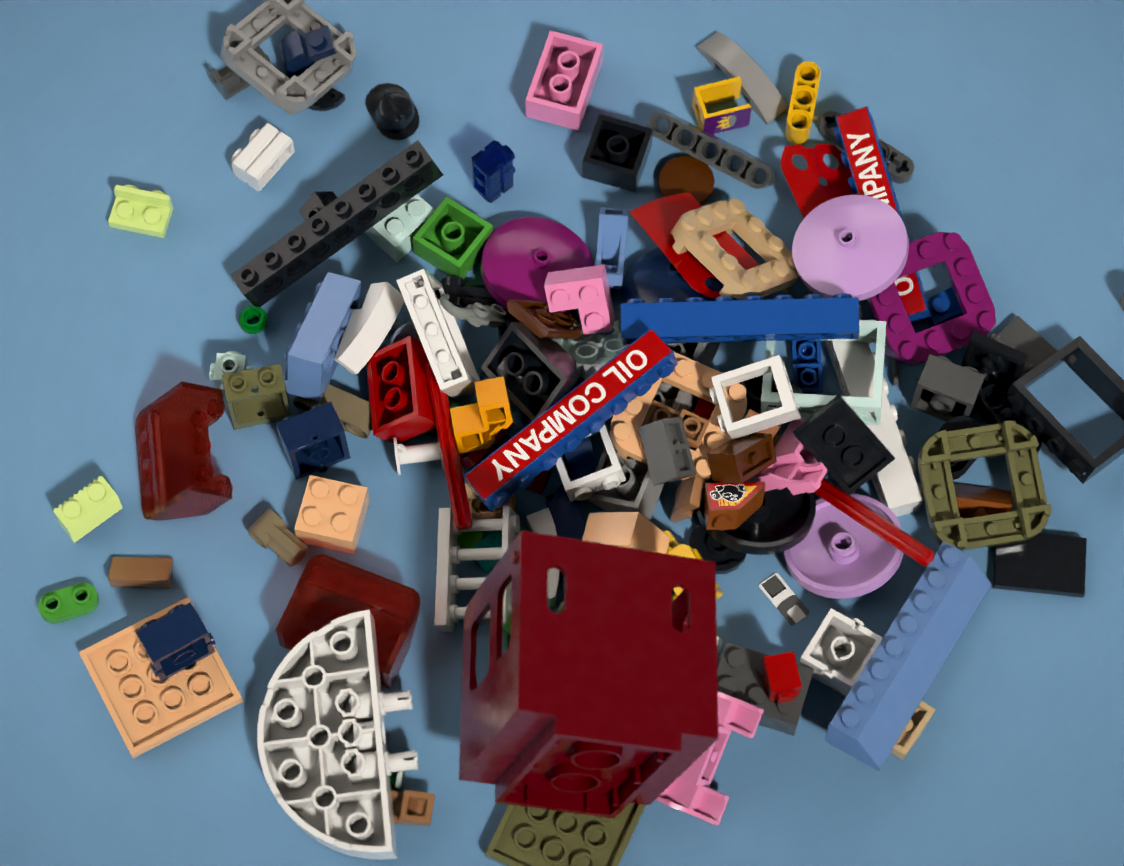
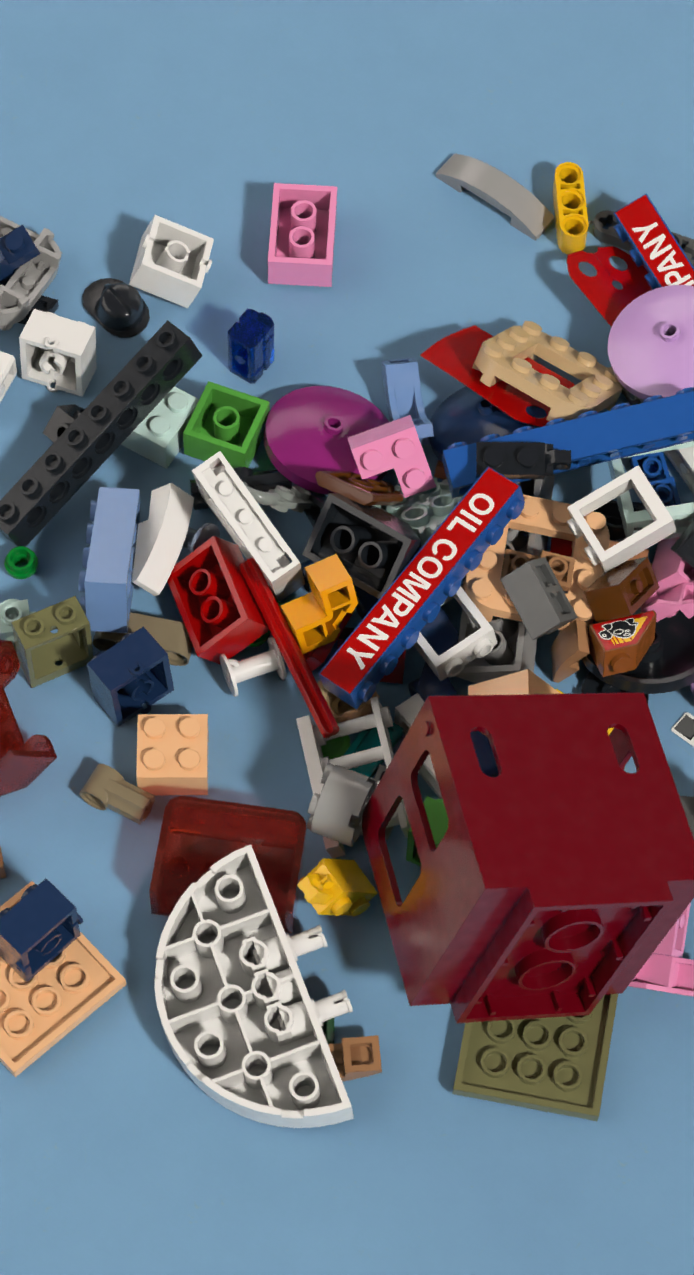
camera: 15 degrees left, 5 degrees down
(329, 143) = (58, 352): none -> white brick
(432, 661) = (337, 888): none -> yellow hinge
(446, 82) = (171, 261): none -> white brick
(451, 592) = (341, 804): none -> light grey brick
(617, 153) = (383, 299): black brick -> none
(682, 326) = (521, 459): none -> black hinge
(686, 175) = (465, 309): reddish brown tile -> none
(715, 94) = (485, 244): yellow piece -> none
(724, 154) = (470, 273): dark grey beam -> none

